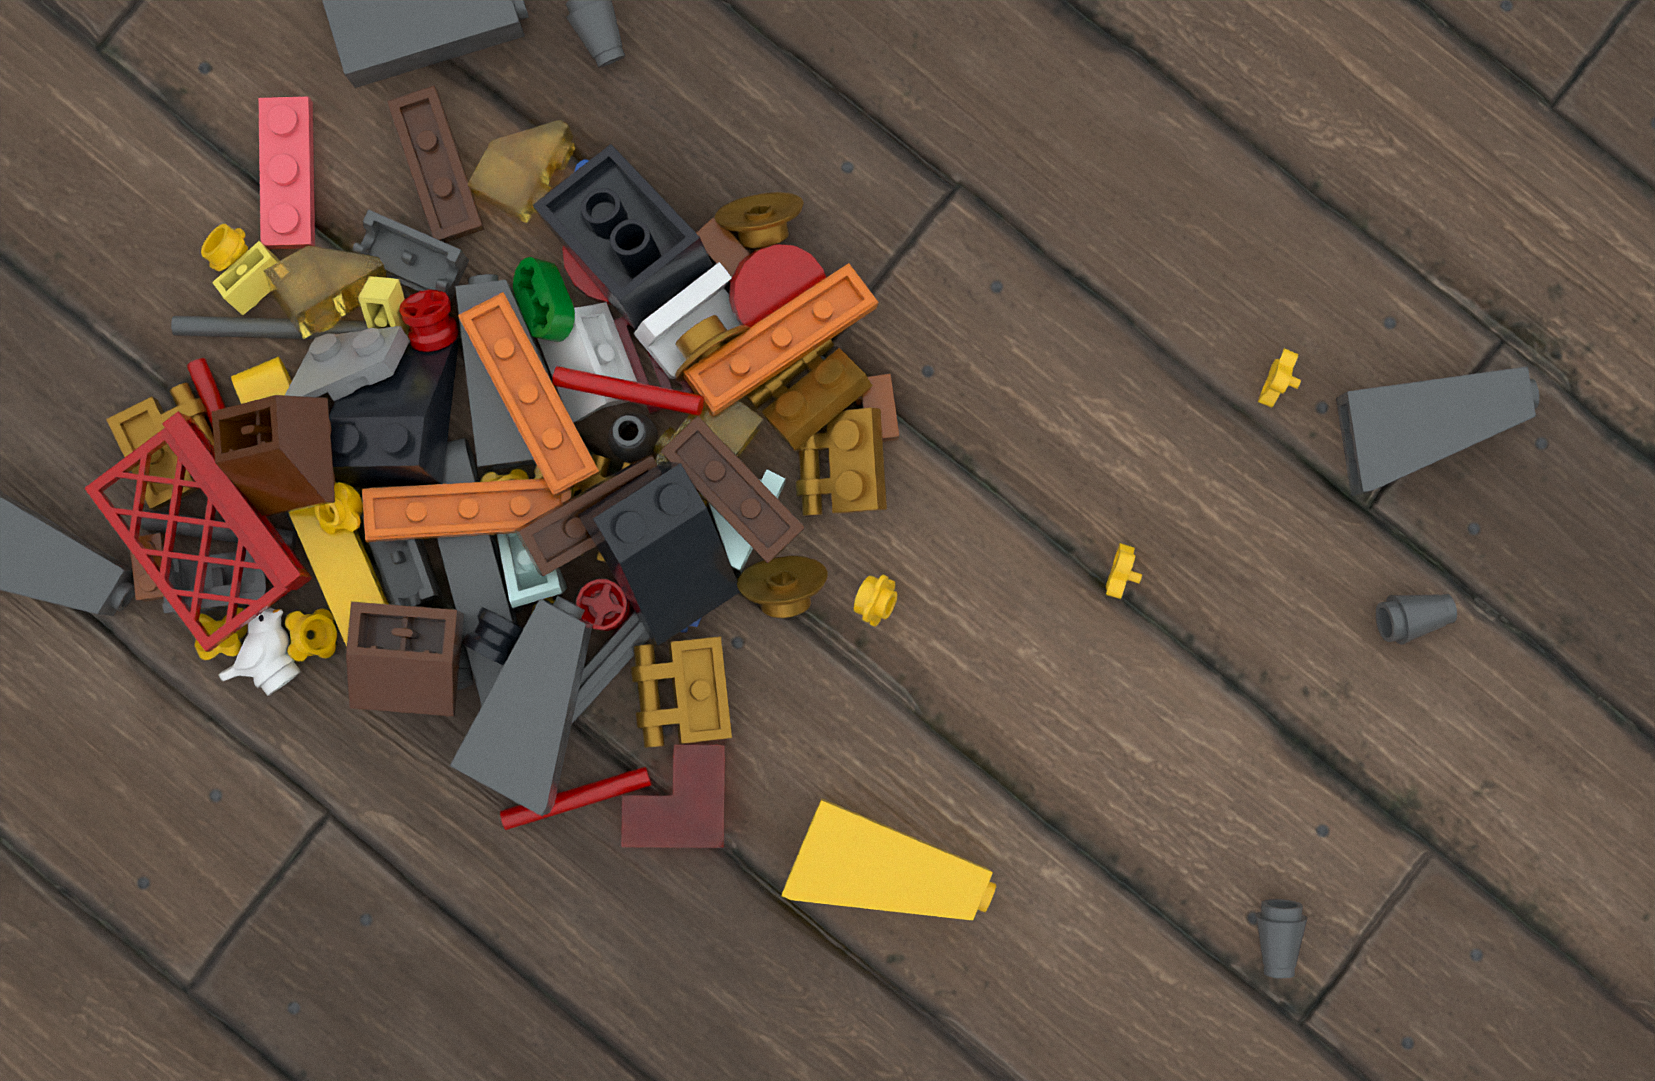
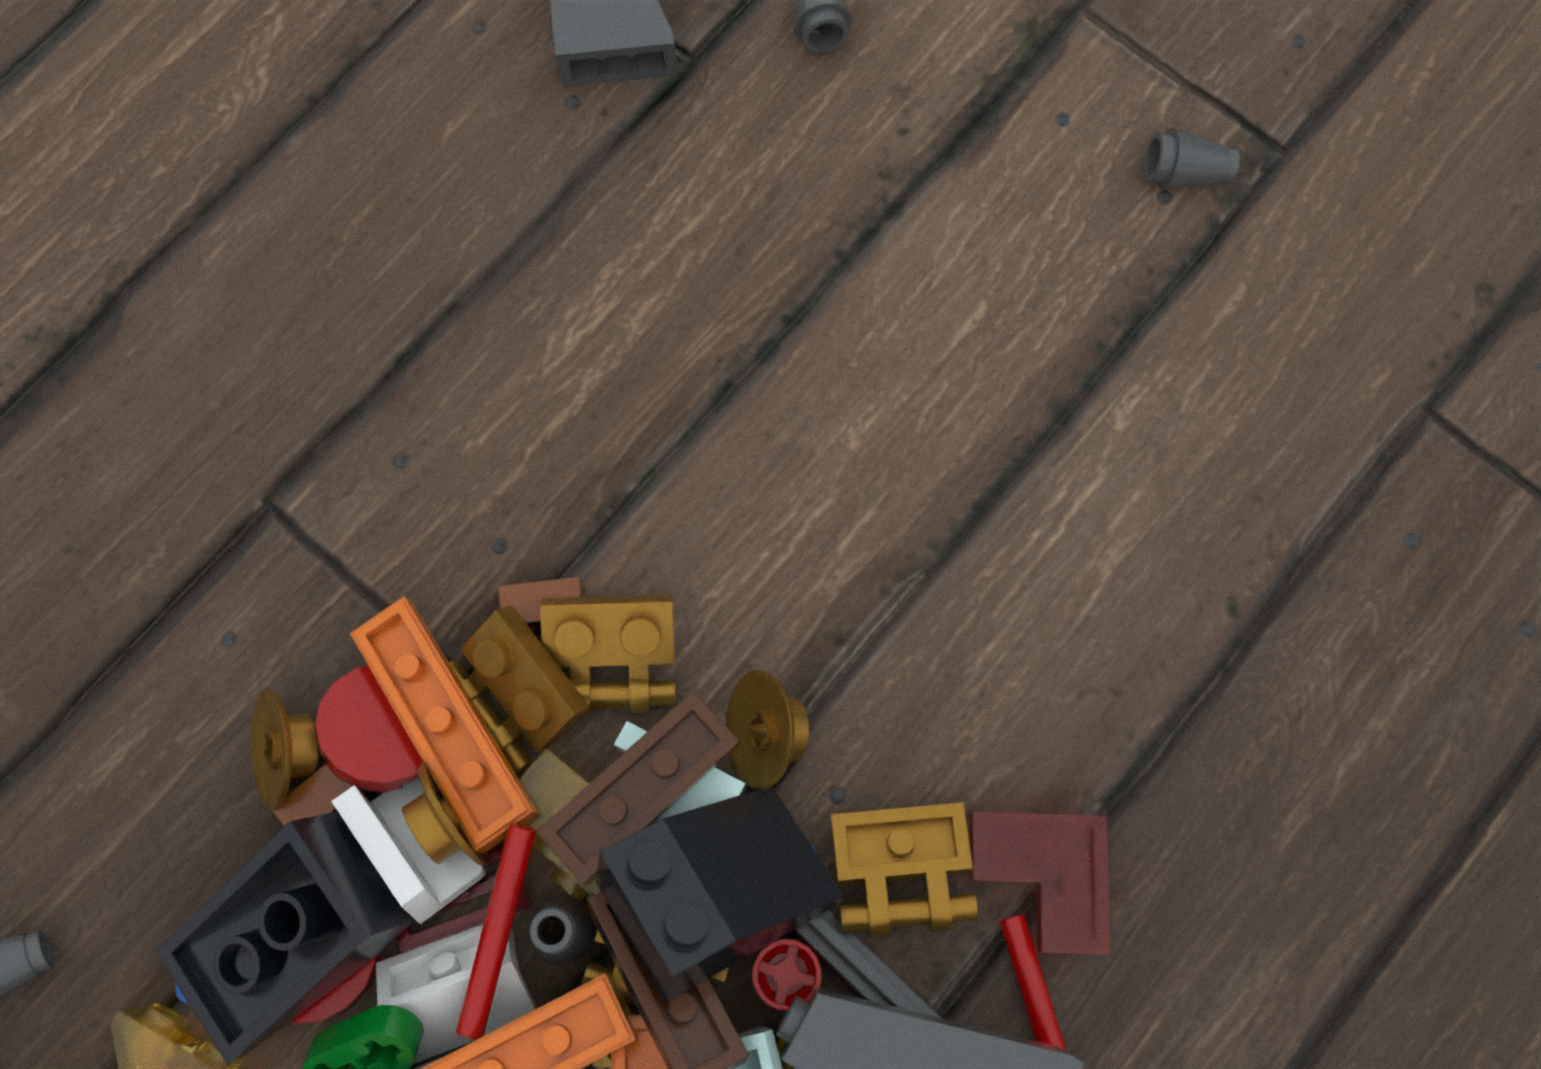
camera: 85 degrees left, 10 degrees down
(875, 599) = (786, 613): yellow plate -> none
(878, 868) = (1127, 618): yellow slope -> none
(1122, 571) = (758, 319): yellow piece -> none
(1279, 378) = (535, 138): yellow piece -> none

